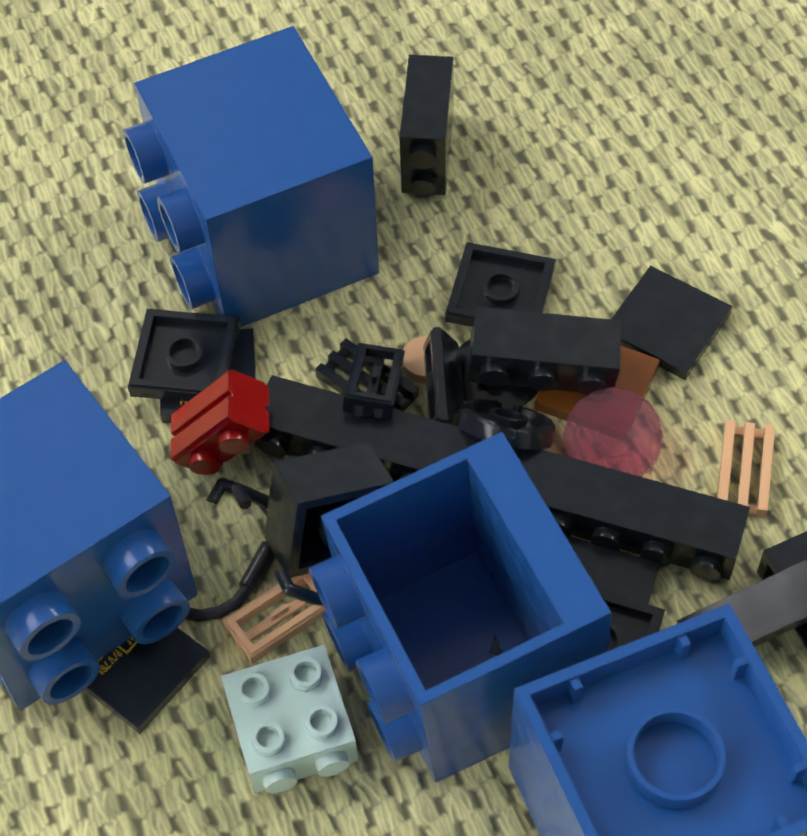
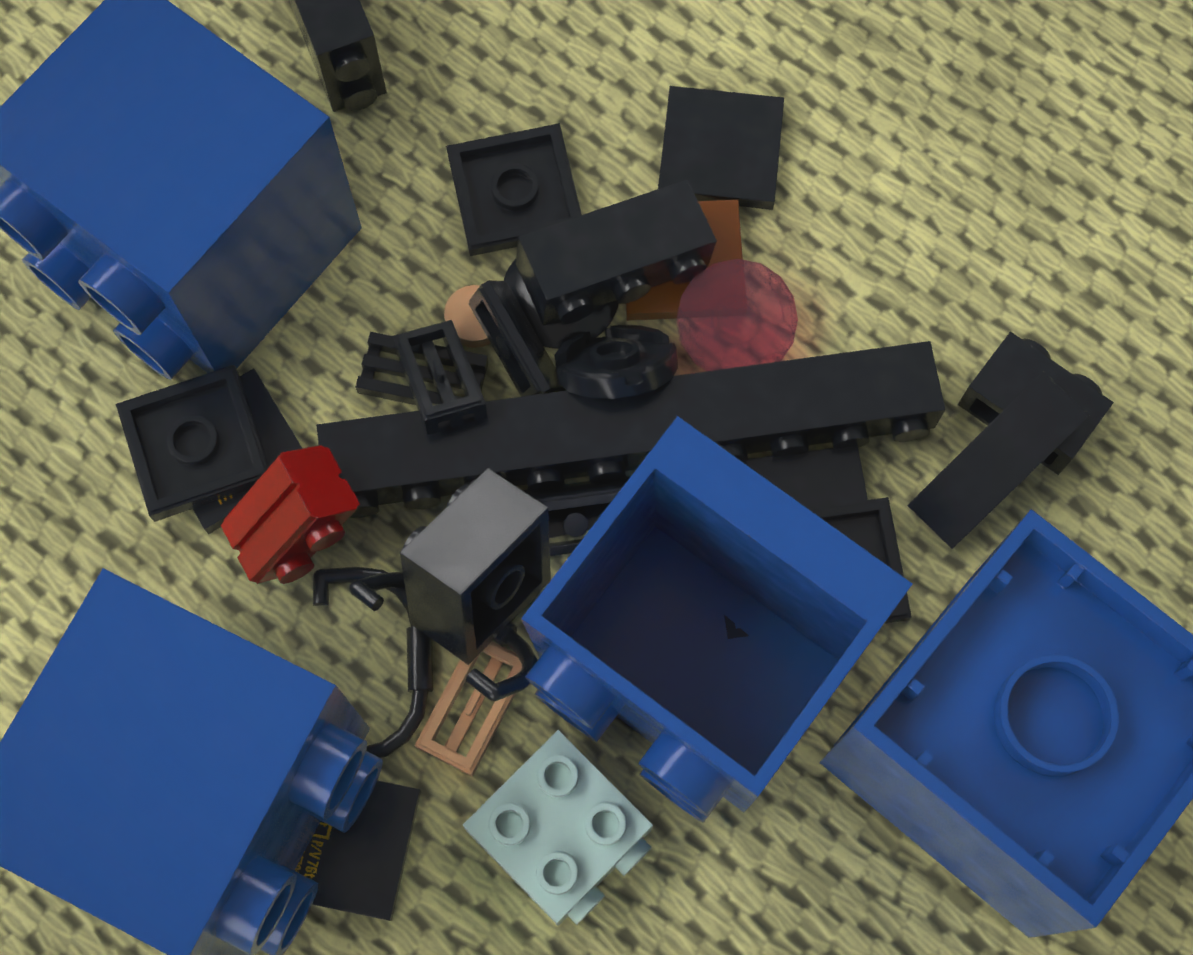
camera: 30 degrees left, 15 degrees up
(748, 434) = (875, 245): light nougat tile -> none

